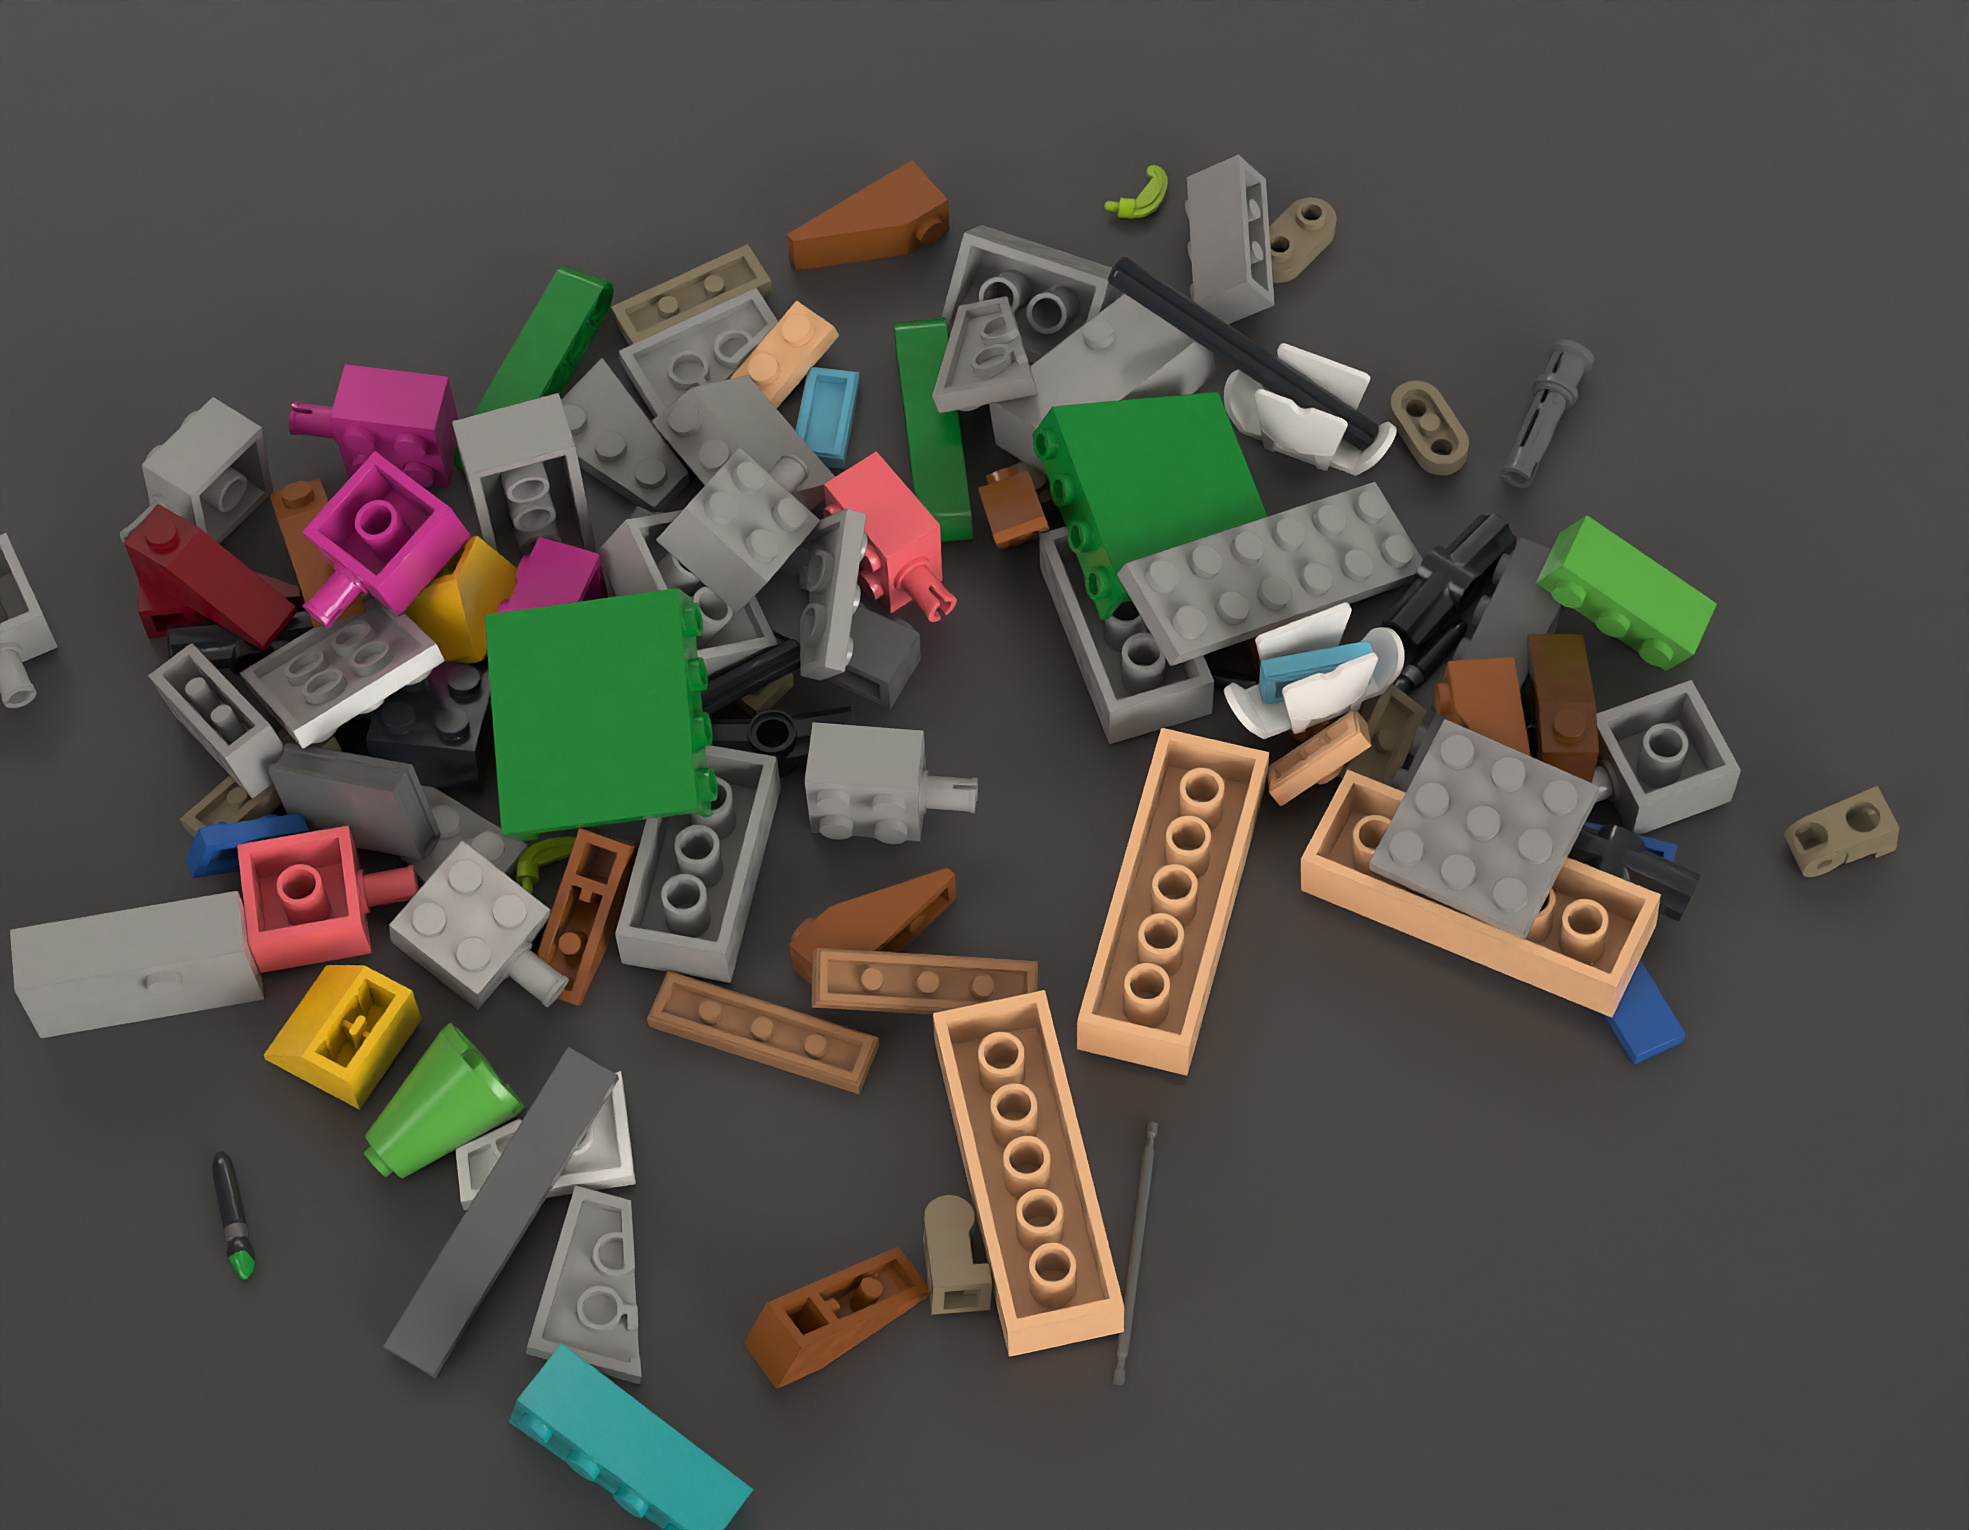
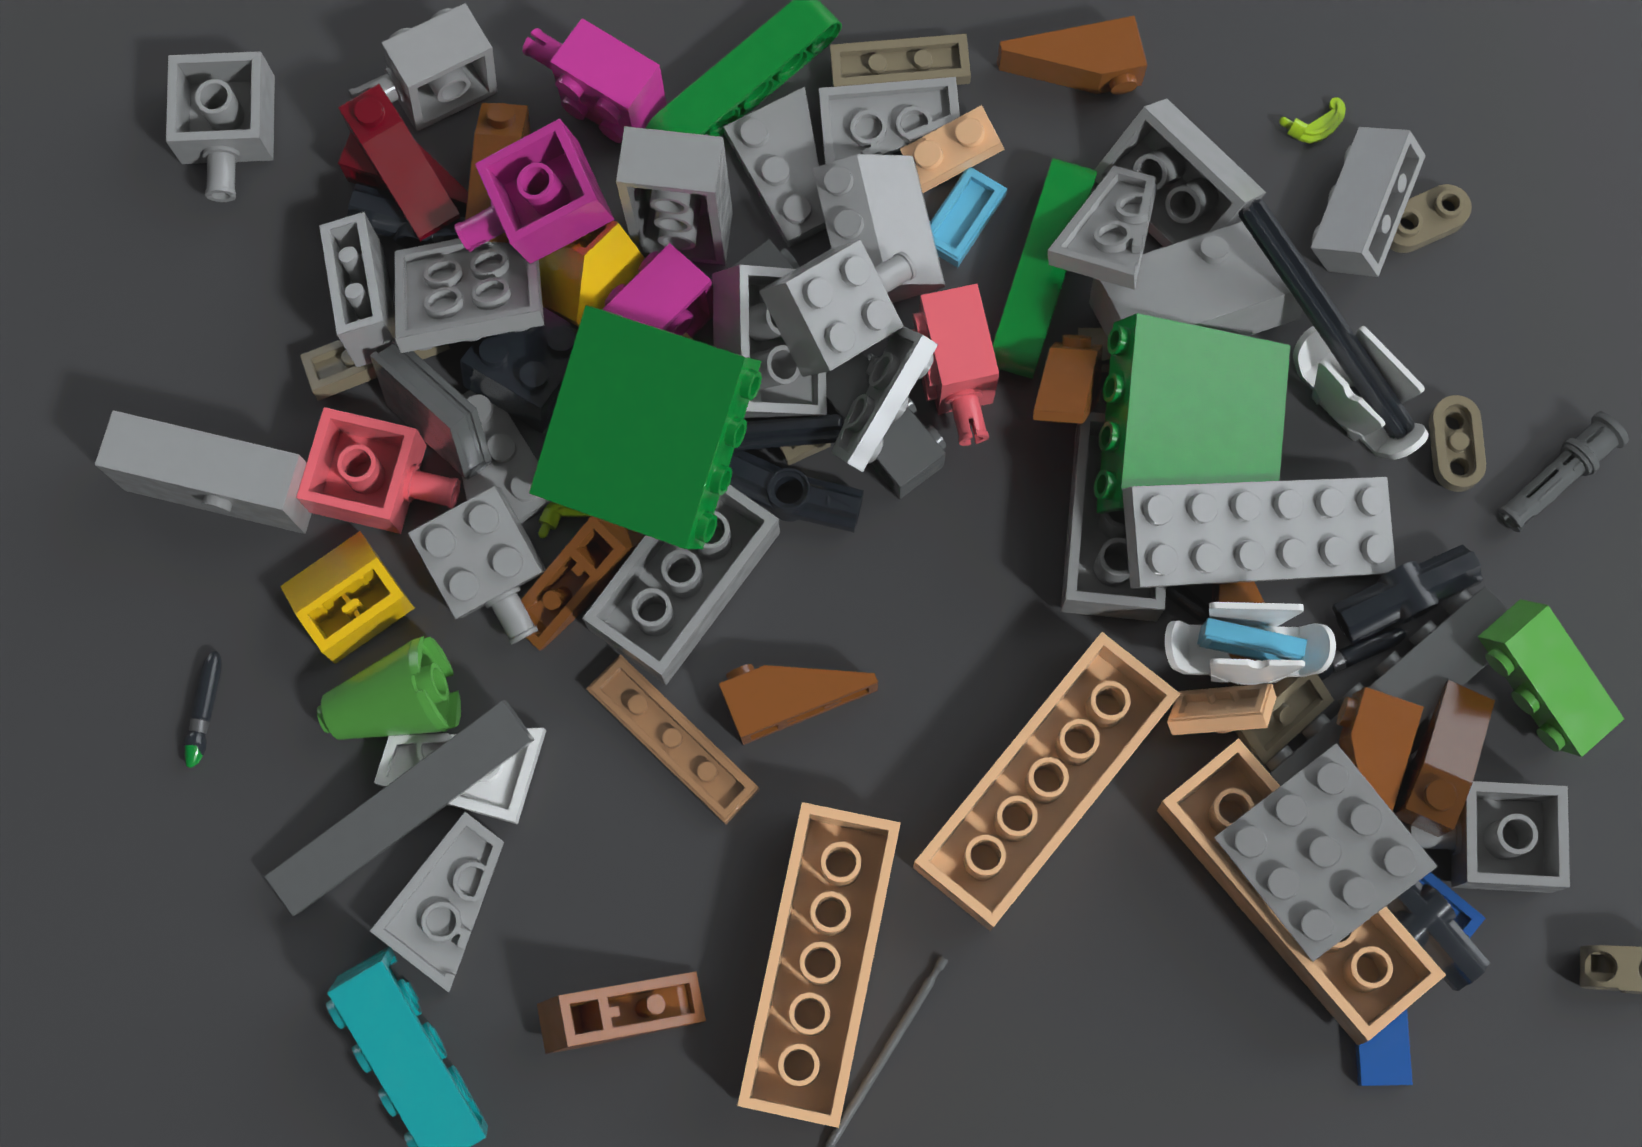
camera: 25 degrees right, 15 degrees up
(215, 846) = (311, 396): blue plate -> none
(876, 783) = (851, 574): light grey brick -> none
(914, 980) = (811, 764): medium nougat tile -> none
(952, 1277) = (733, 990): dark tan leg -> none

